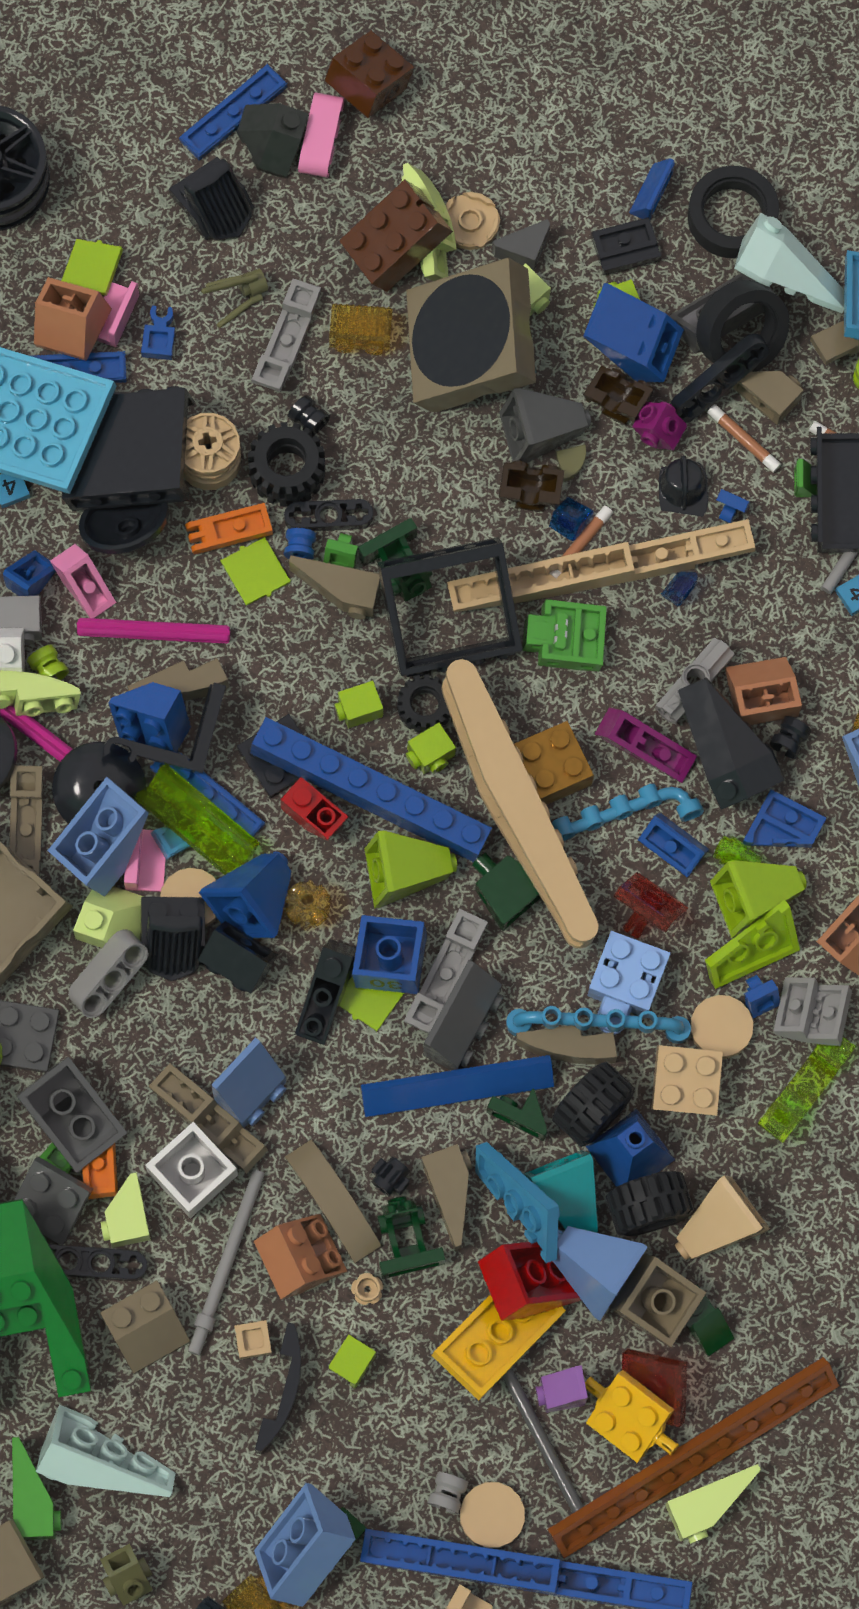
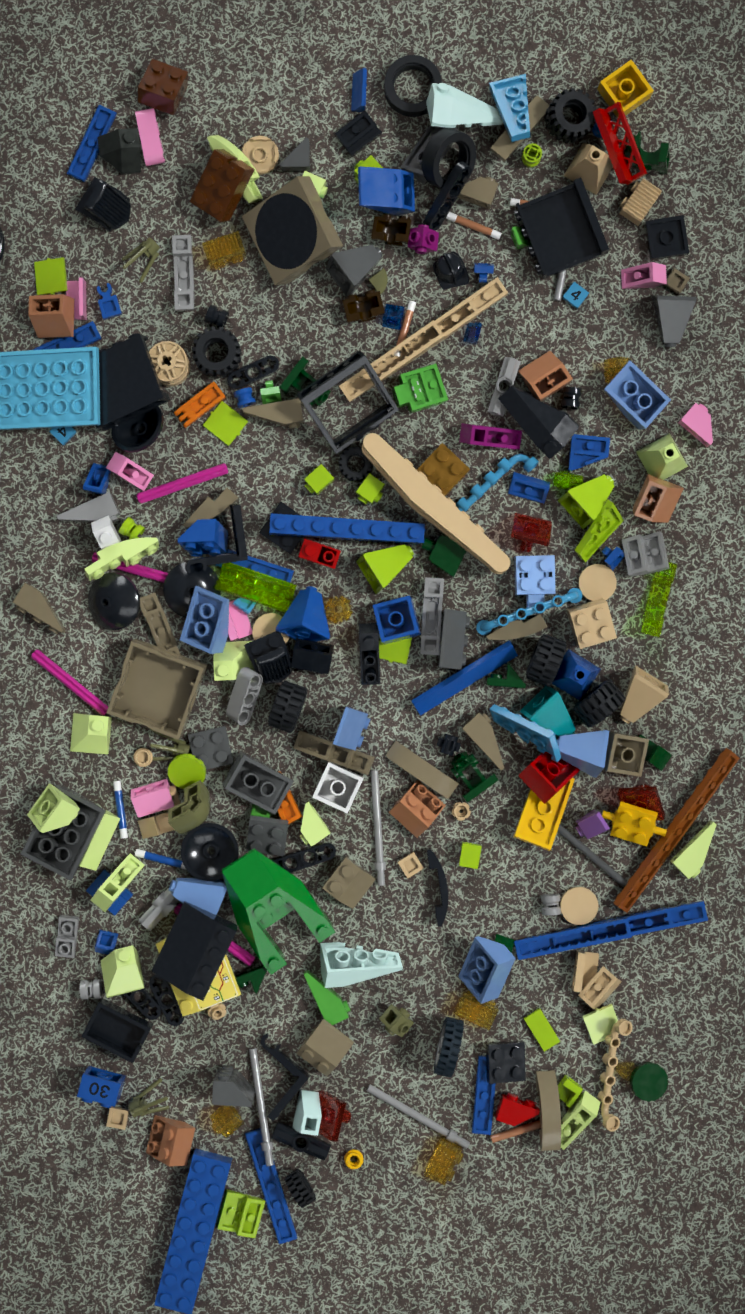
camera: 20 degrees left, 15 degrees up
(167, 1014) = (287, 706): none -> black tyre

